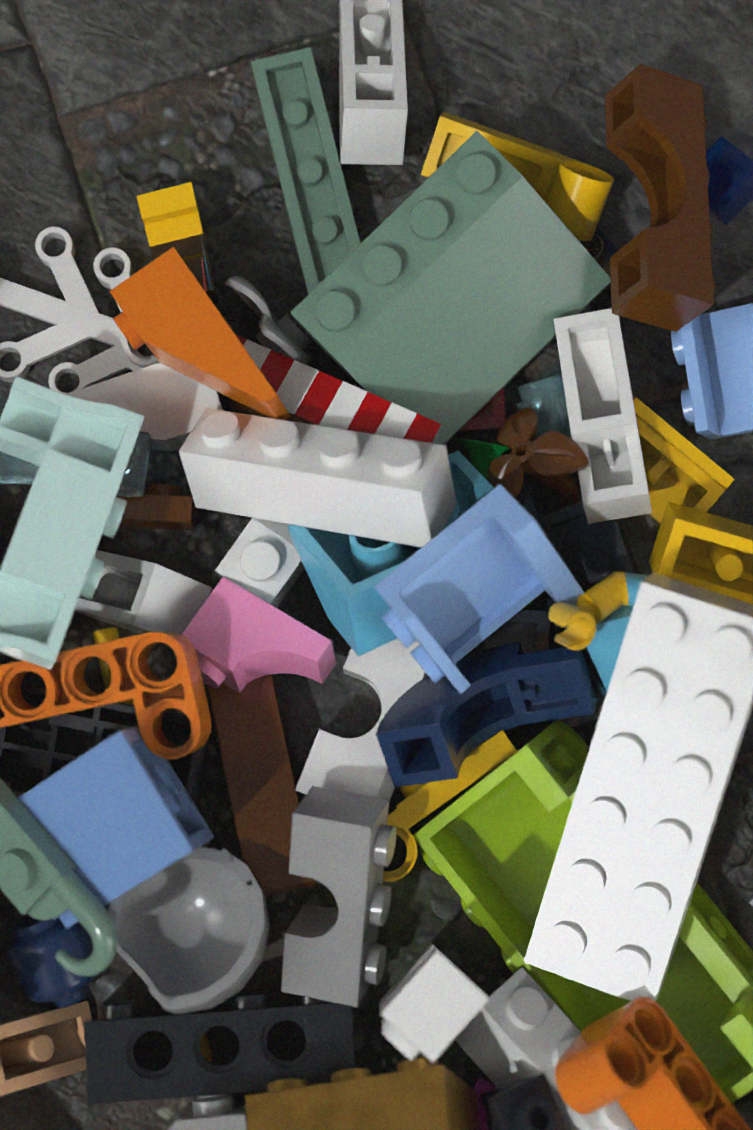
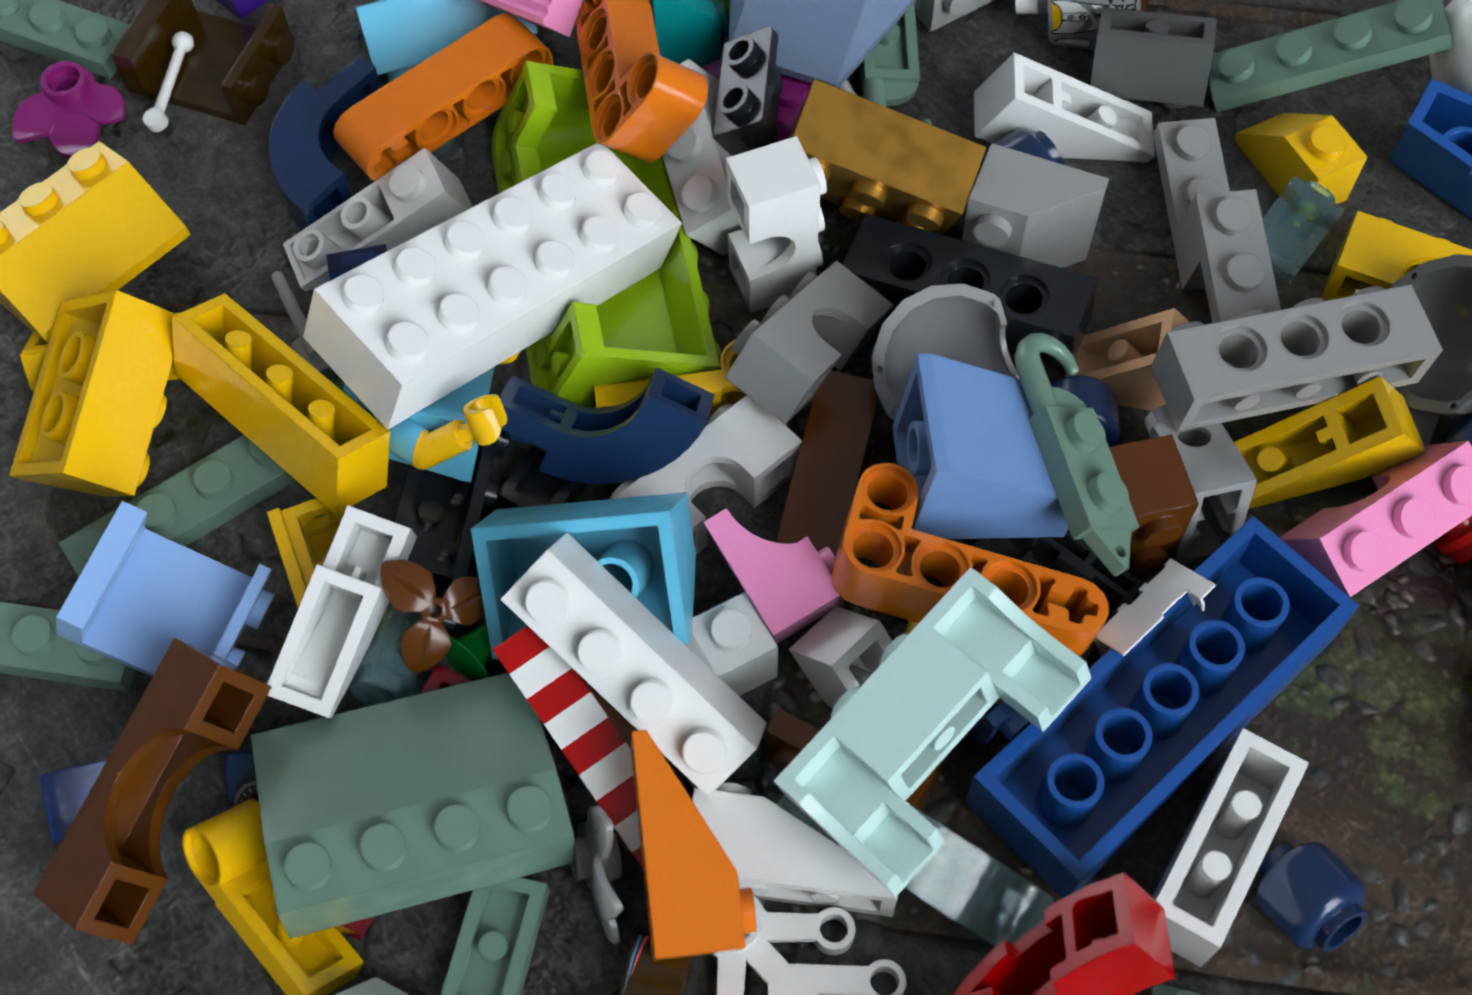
camera: 150 degrees left, 20 degrees down
(472, 583) = (555, 497): light blue panel -> none

